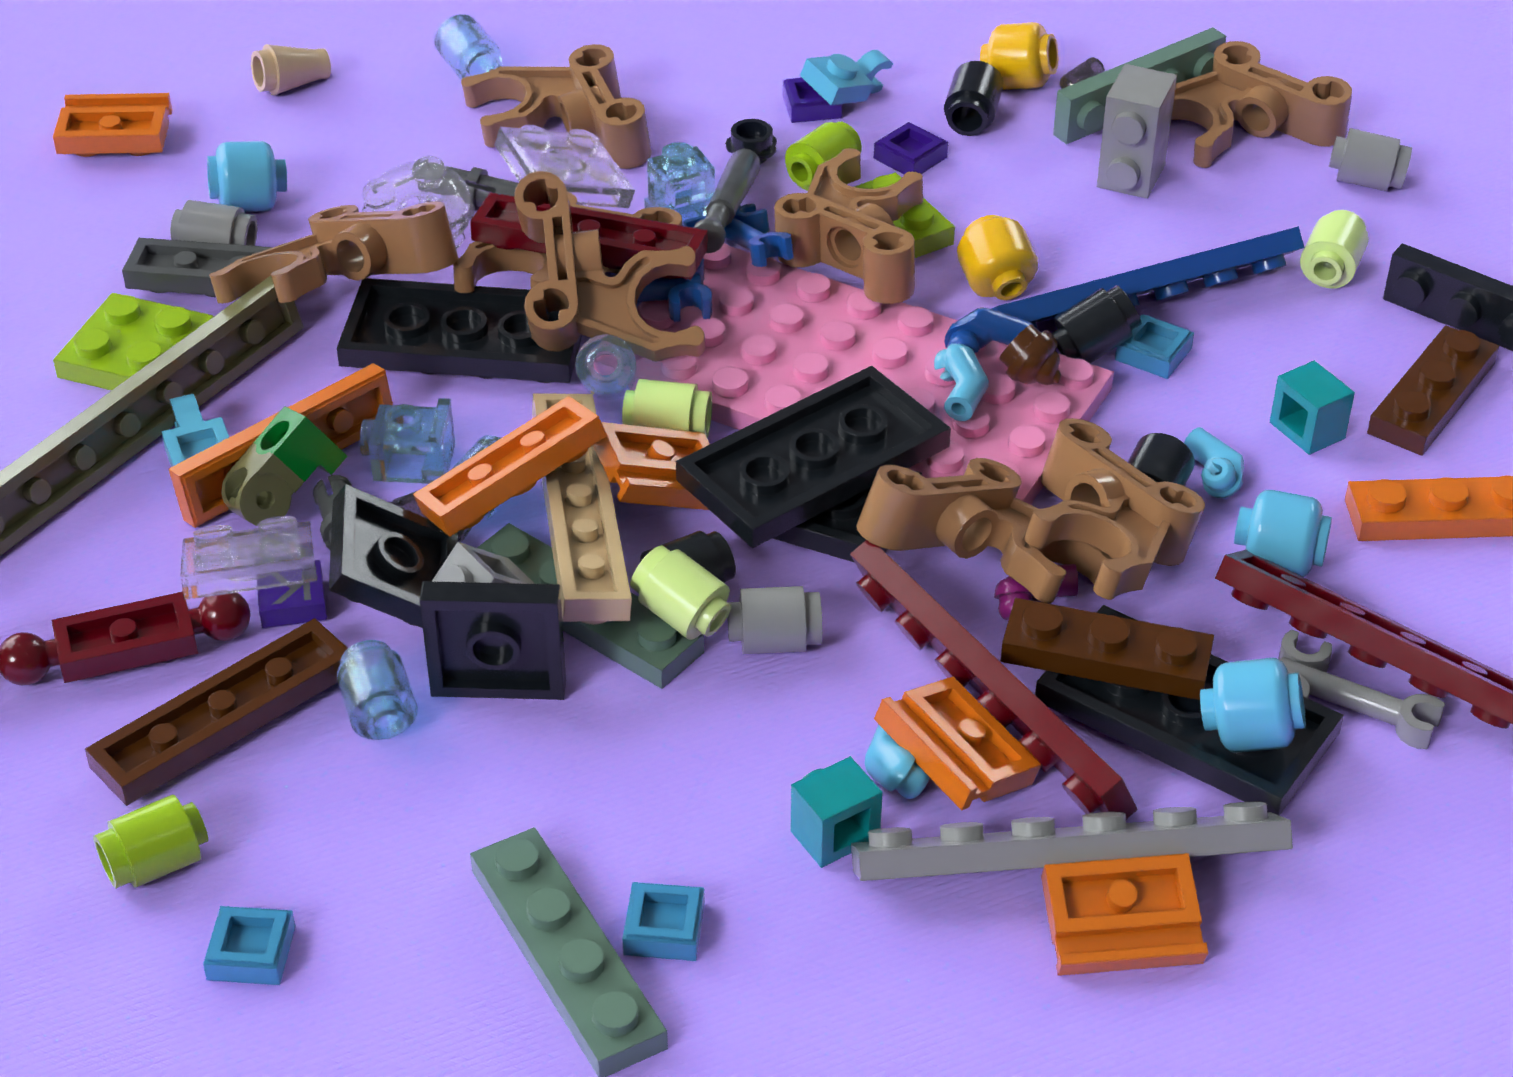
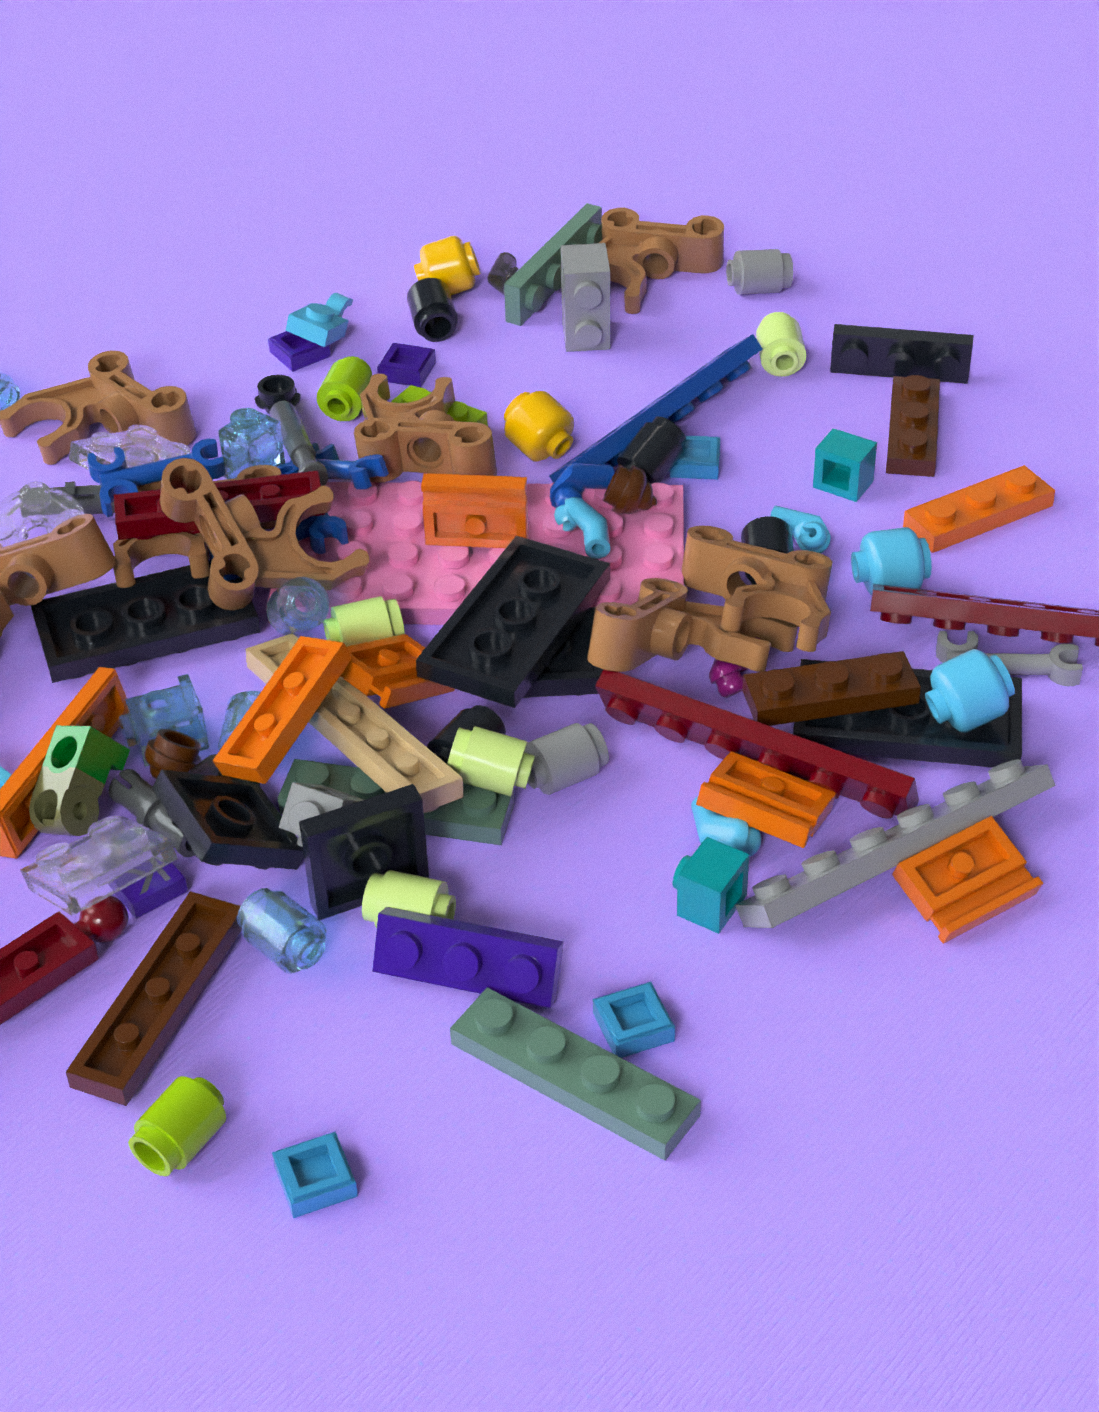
camera: 25 degrees left, 0 degrees up
(392, 474) = (172, 752): none -> reddish brown plate
(513, 712) = (407, 893): none -> yellowish green brick
(535, 788) = (467, 956): none -> dark purple plate
(607, 184) = (119, 479): none -> blue bar
(844, 323) = (474, 510): none -> orange plate

